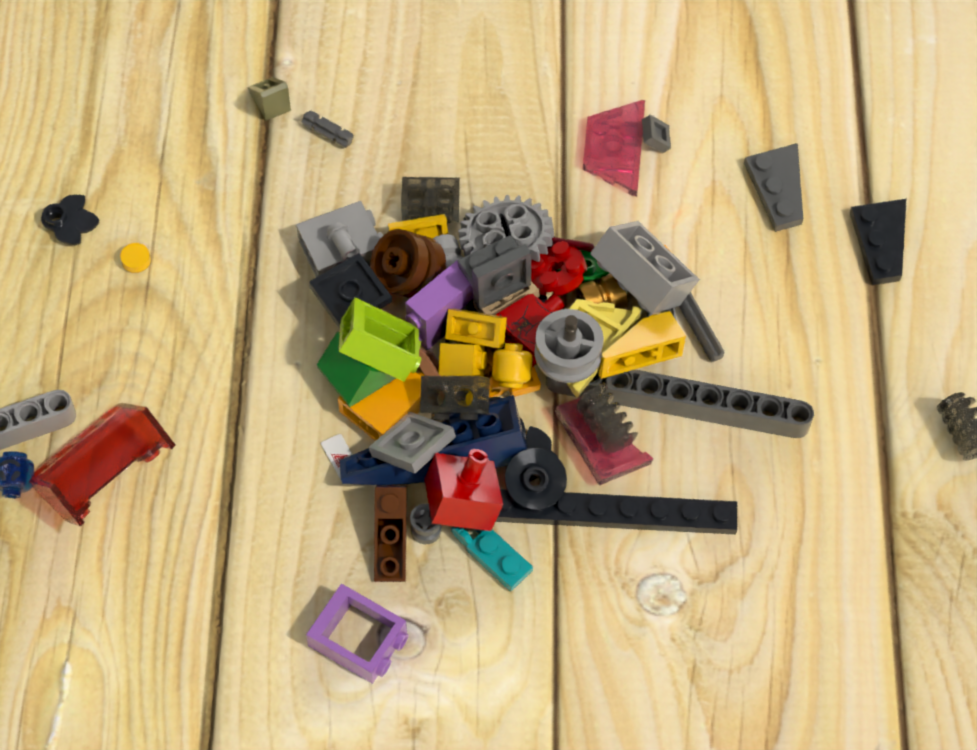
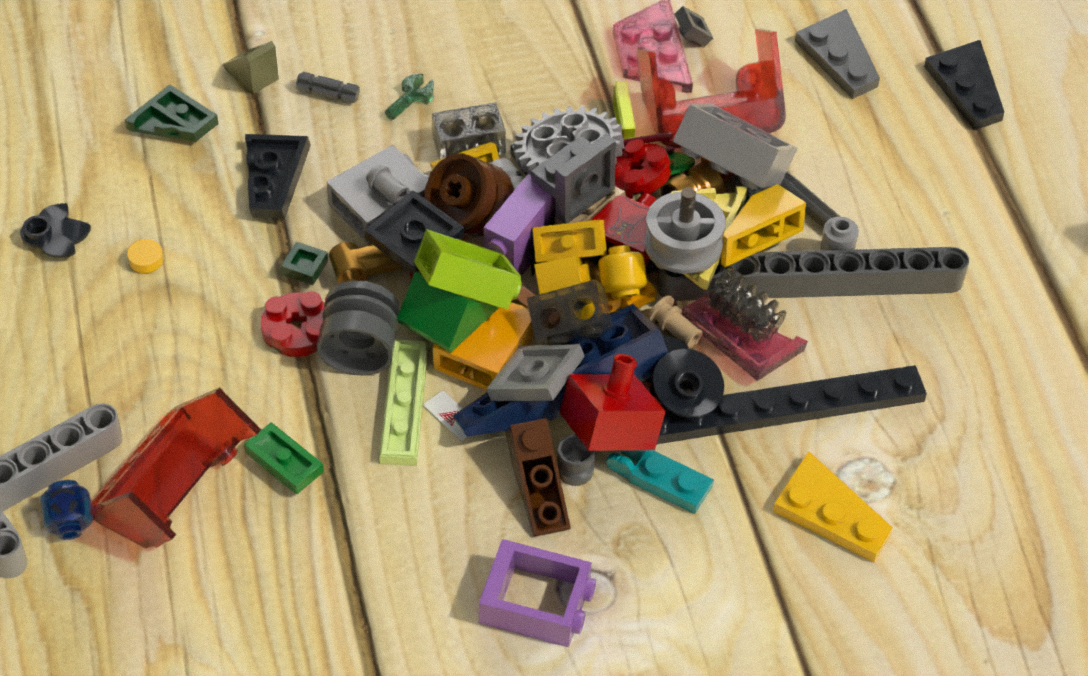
camera: 15 degrees left, 10 degrees down
(191, 131) = (172, 116): none -> dark green wing
(194, 467) = (284, 458): none -> green plate
(239, 331) = (288, 308): none -> red plate
(259, 202) = (274, 172): none -> black wing
(260, 293) = (304, 263): none -> dark green plate
(282, 367) = (358, 328): none -> dark grey wheel
(300, 303) = (357, 263): none -> pearl gold piece
(305, 438) = (404, 403): none -> yellowish green tile
(395, 150) = (412, 93): none -> clear green bar
(545, 413) = (671, 319): none -> tan pin
(567, 208) = (623, 109): none -> neon yellow tile
(622, 615) = (832, 510): none -> yellow wing
(676, 225) = (756, 101): none -> clear red windscreen
(710, 368) = (839, 234): none -> light grey brick

